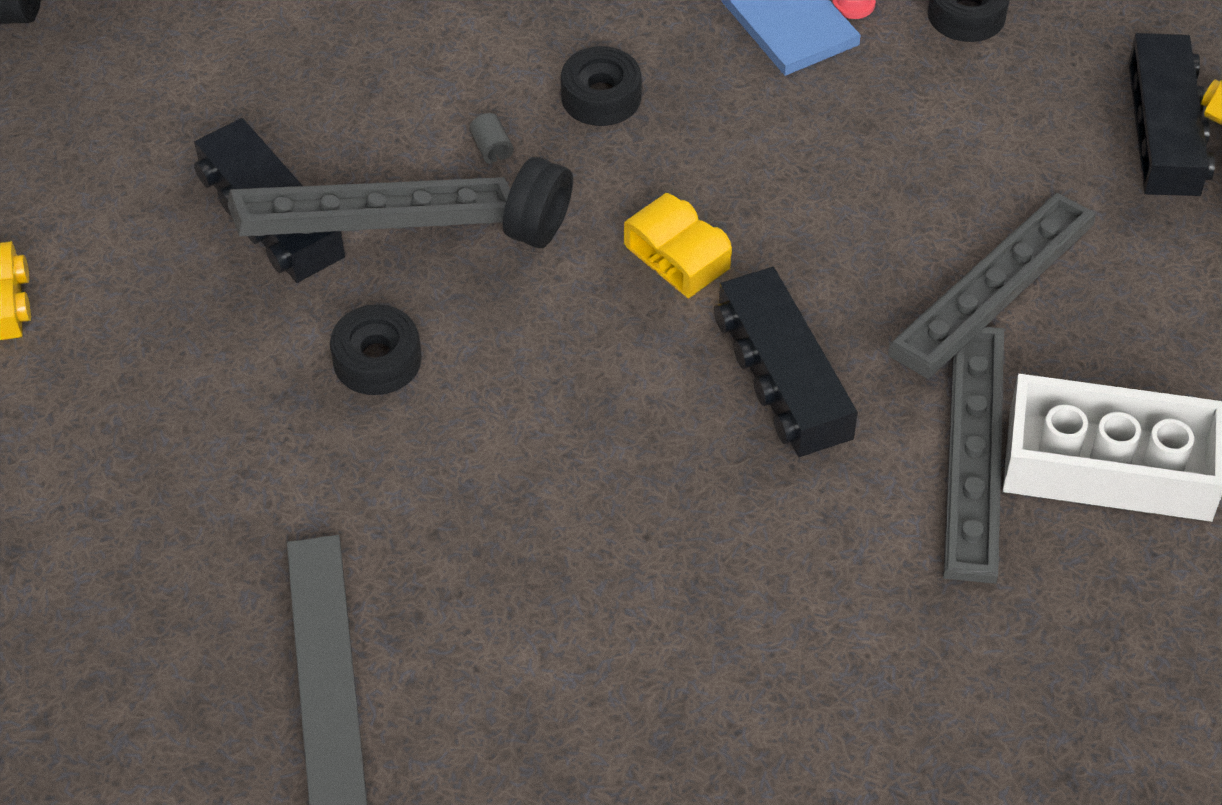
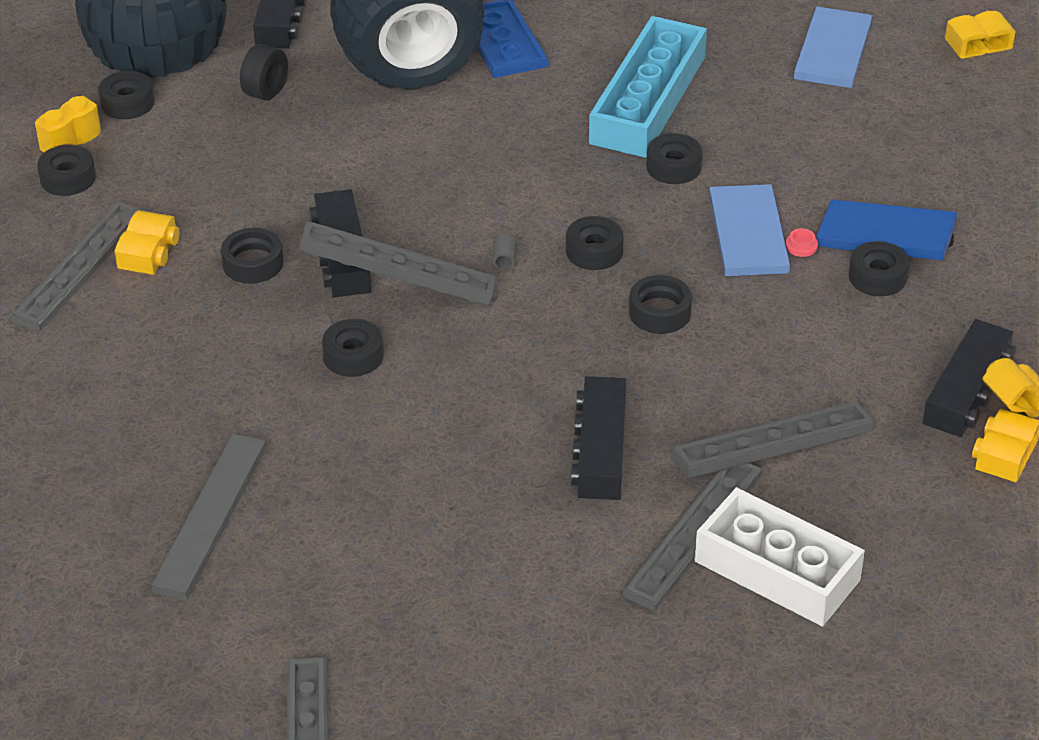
camera: 25 degrees right, 10 degrees down
(157, 287) = (252, 271): none -> black tyre
(537, 202) = (502, 294): black tyre -> none
(678, 244) = (580, 349): yellow brick -> none
(733, 168) = (660, 320): none -> black tyre

